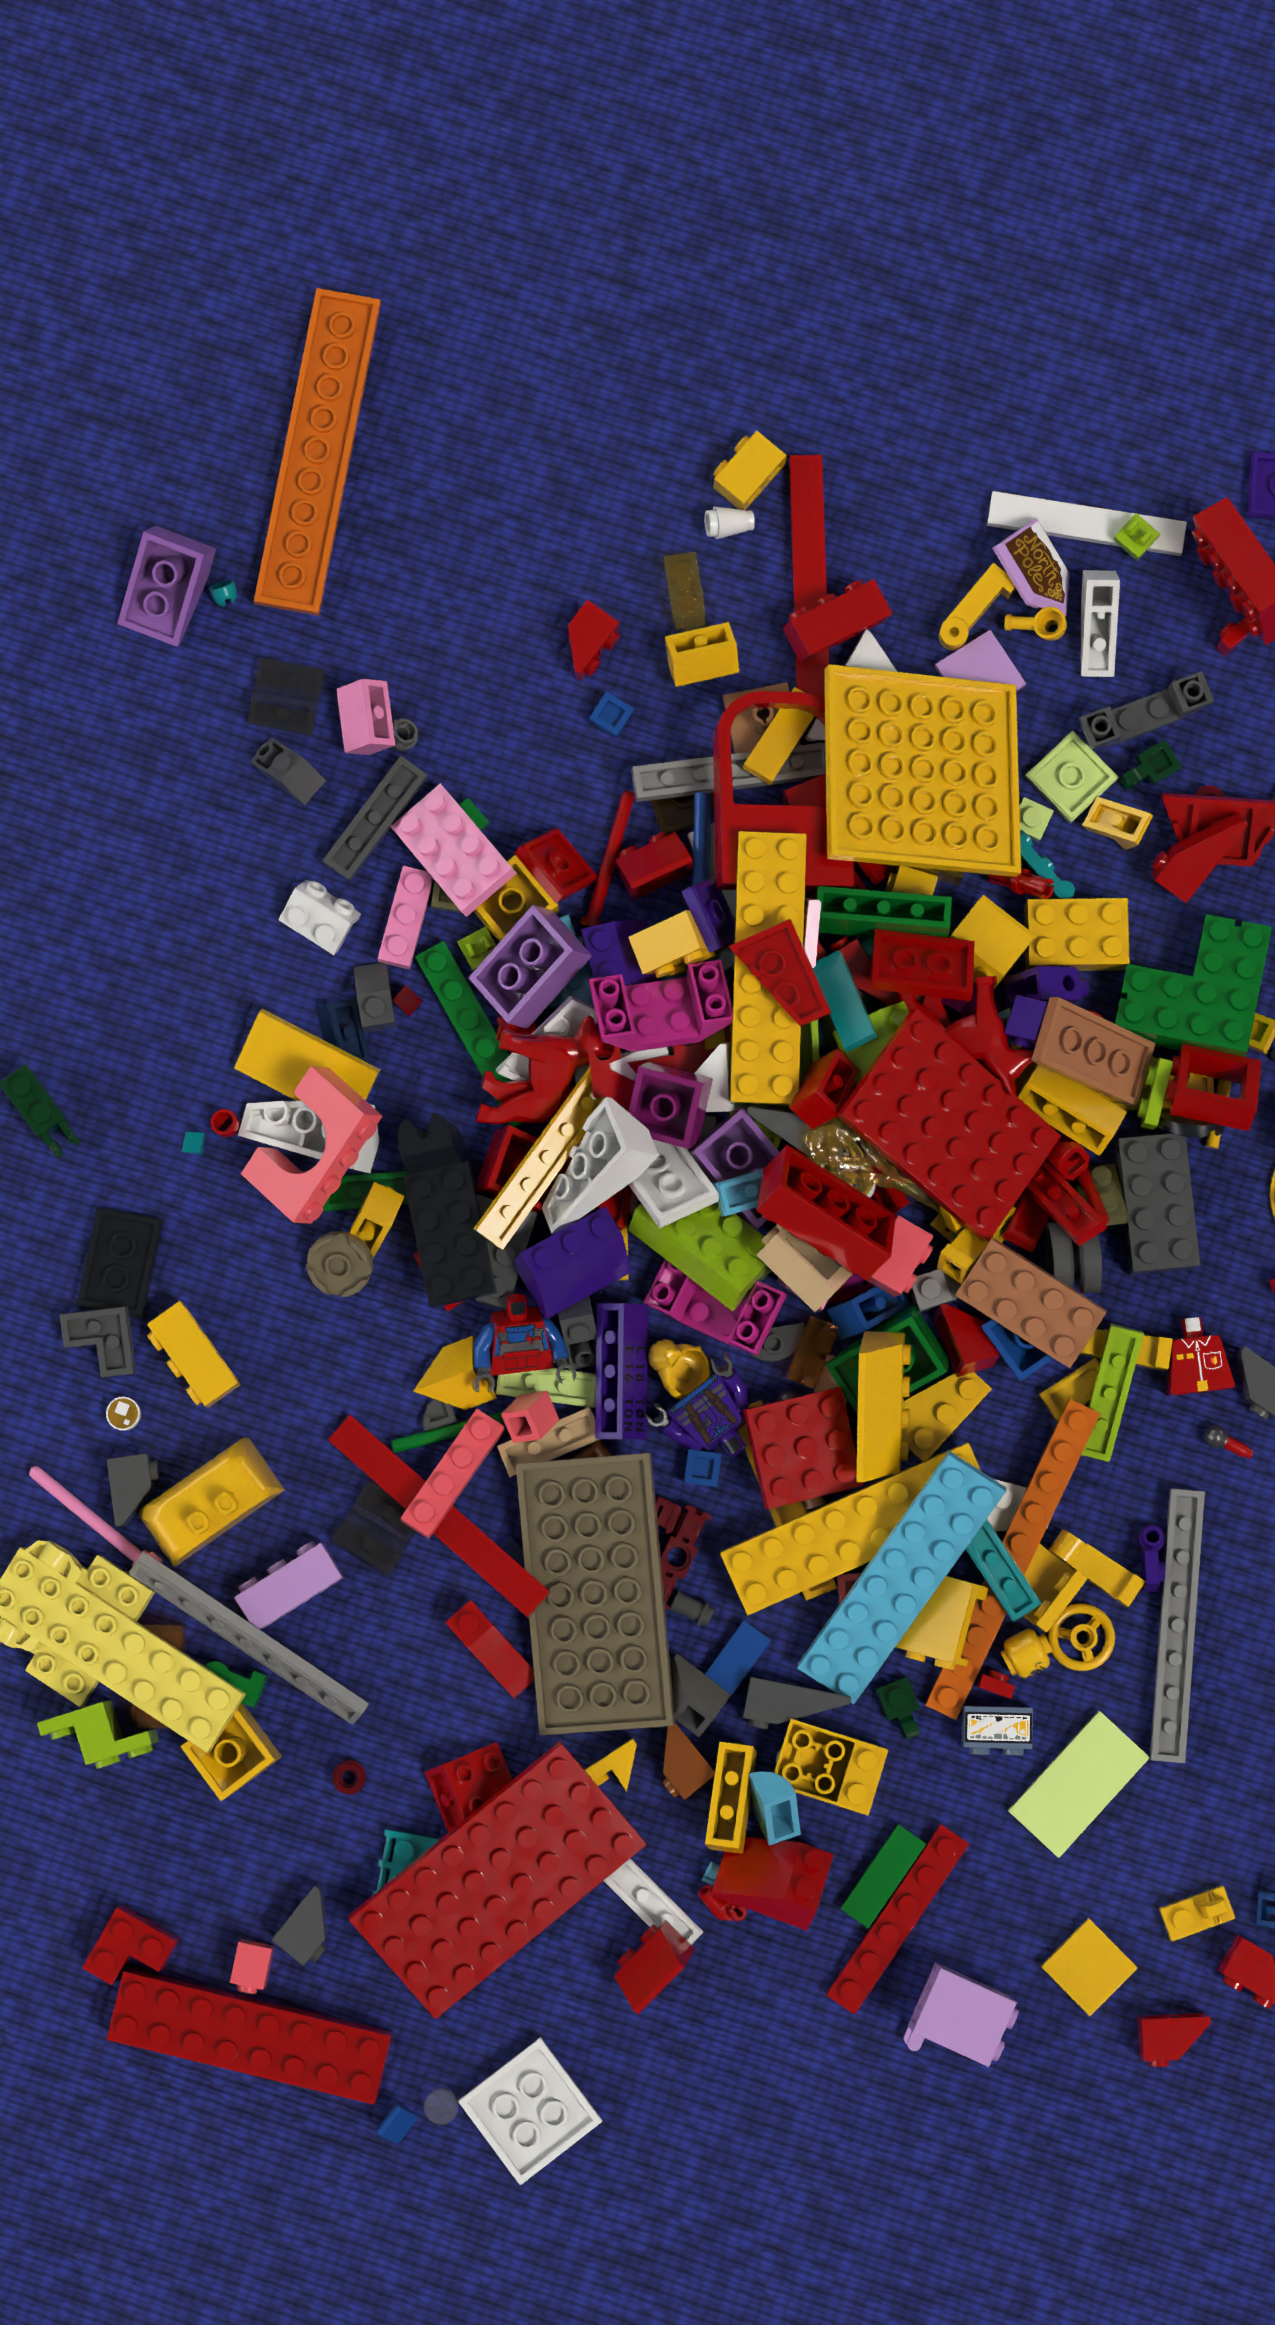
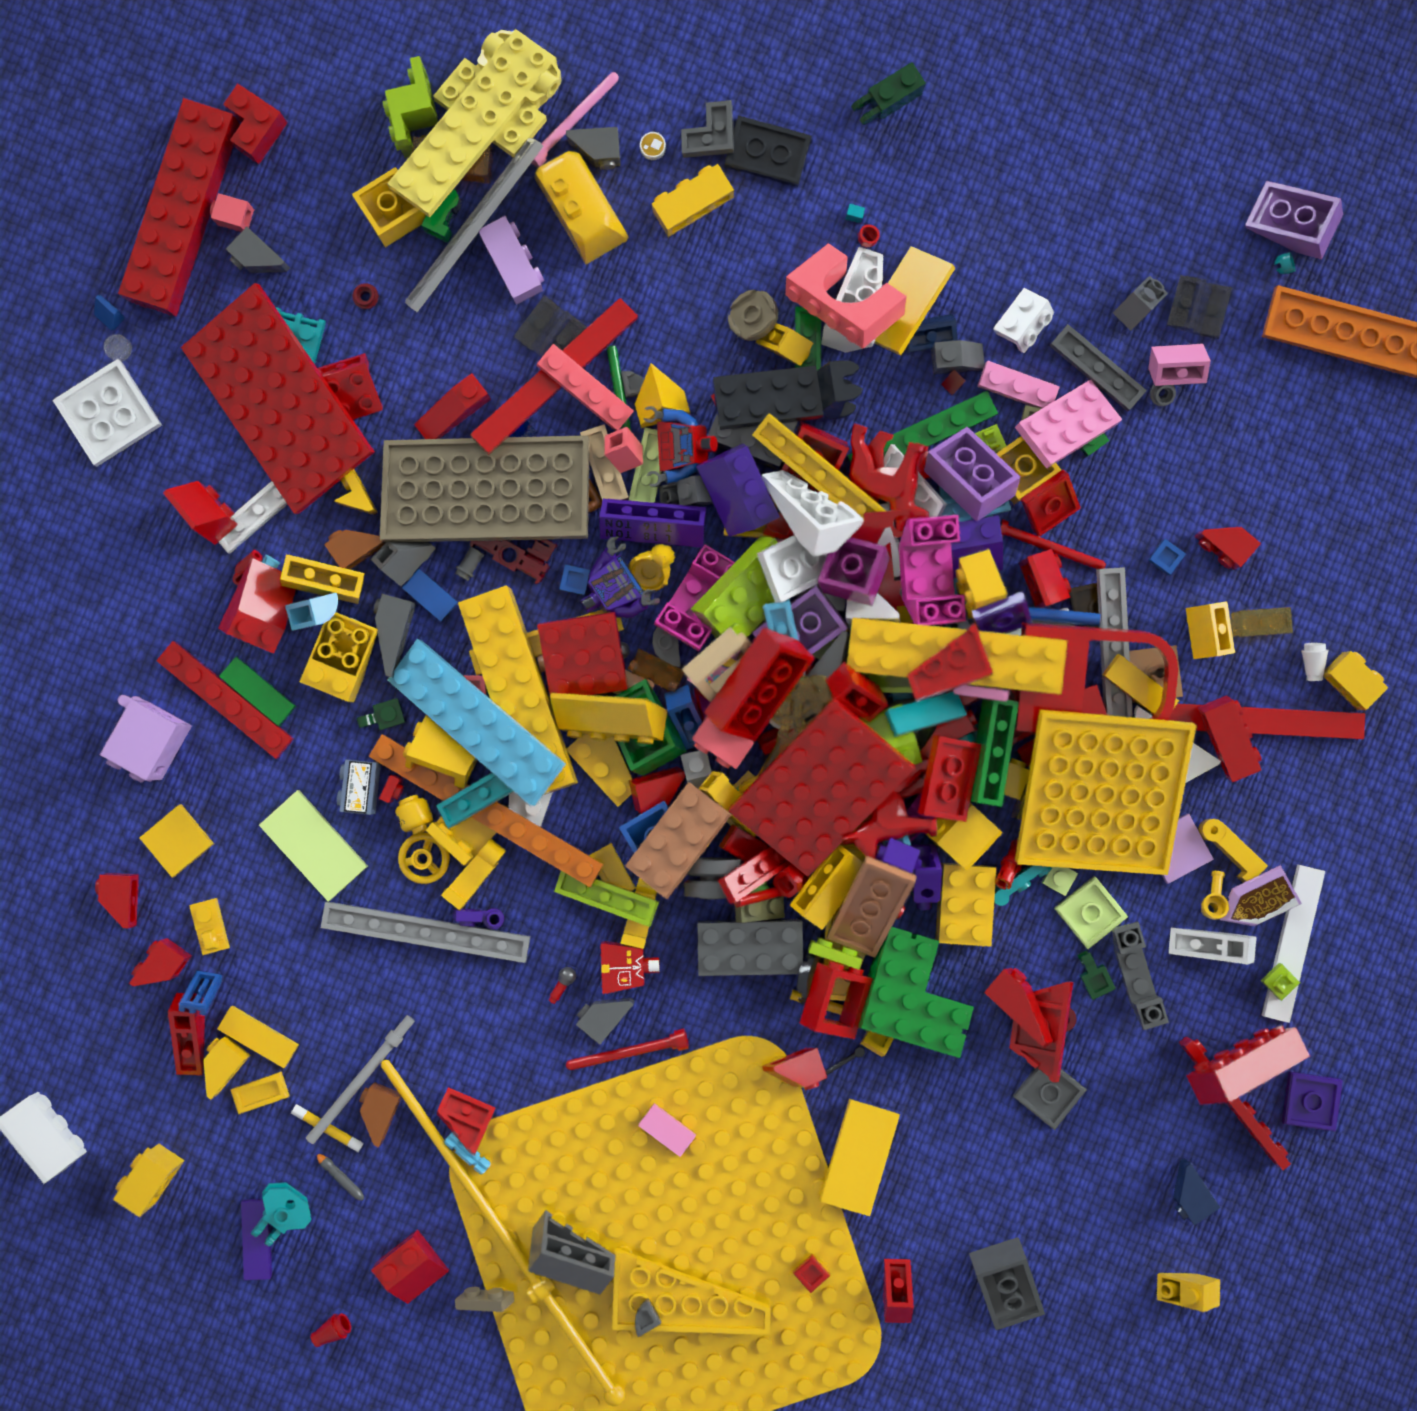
camera: 100 degrees right, 5 degrees up
(1117, 822) = (1052, 944): yellow slope -> none

